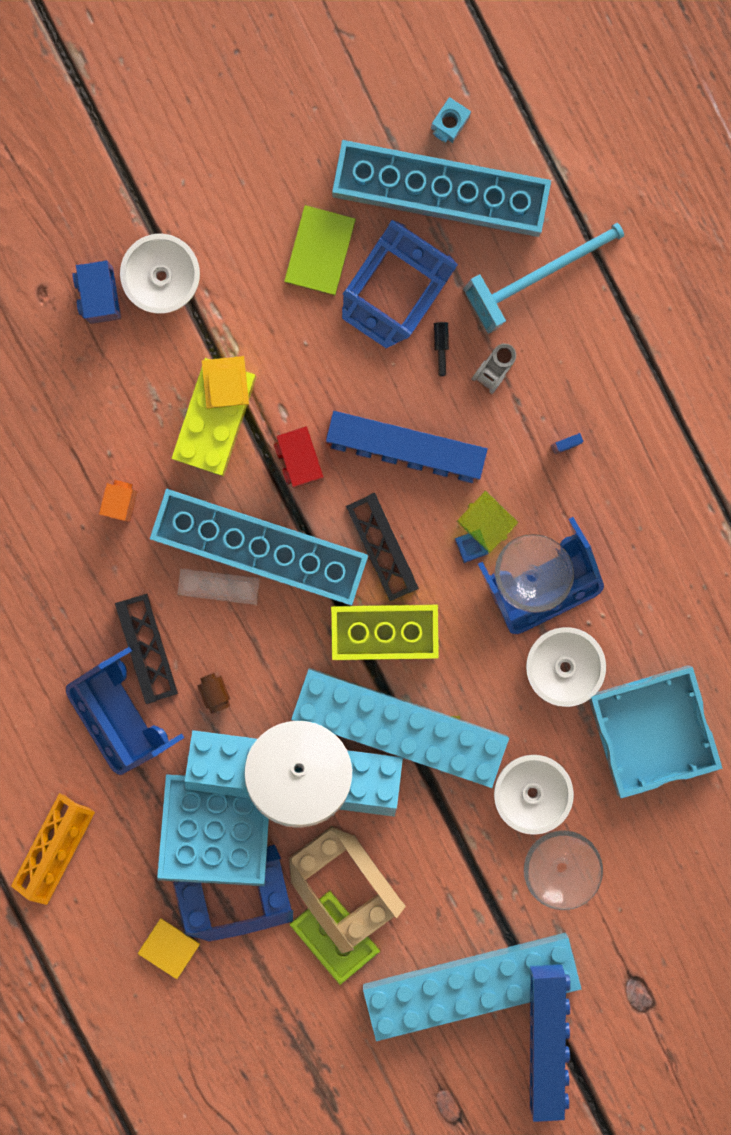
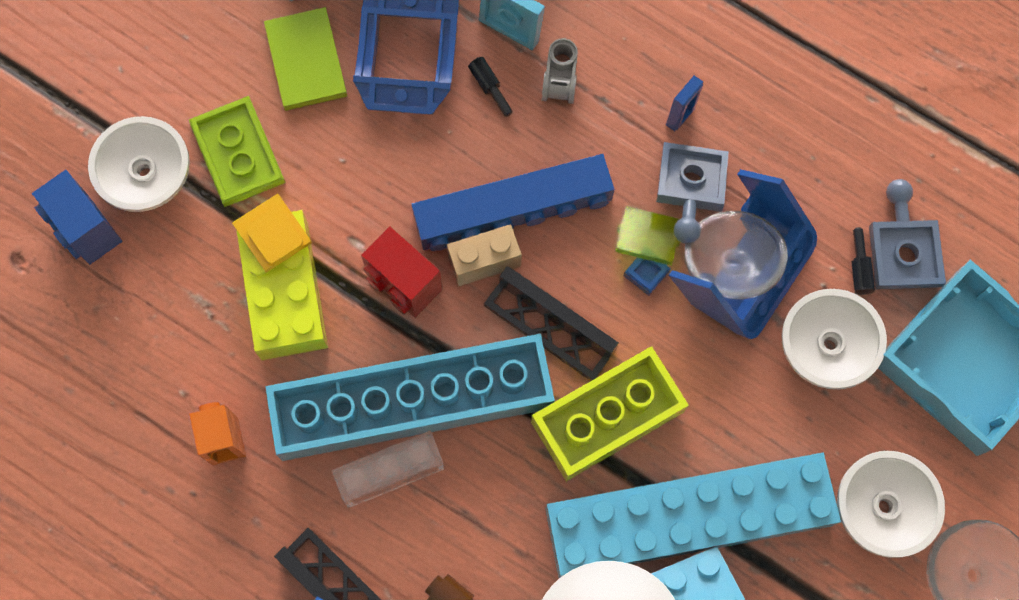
camera: 30 degrees left, 15 degrees down
(234, 295) = (236, 151): none -> lime tile
(364, 473) = (484, 255): none -> tan brick
(541, 515) = (678, 190): none -> sand blue plate
(622, 625) = (862, 266): none -> black axle
(674, 627) = (919, 236): none -> sand blue plate

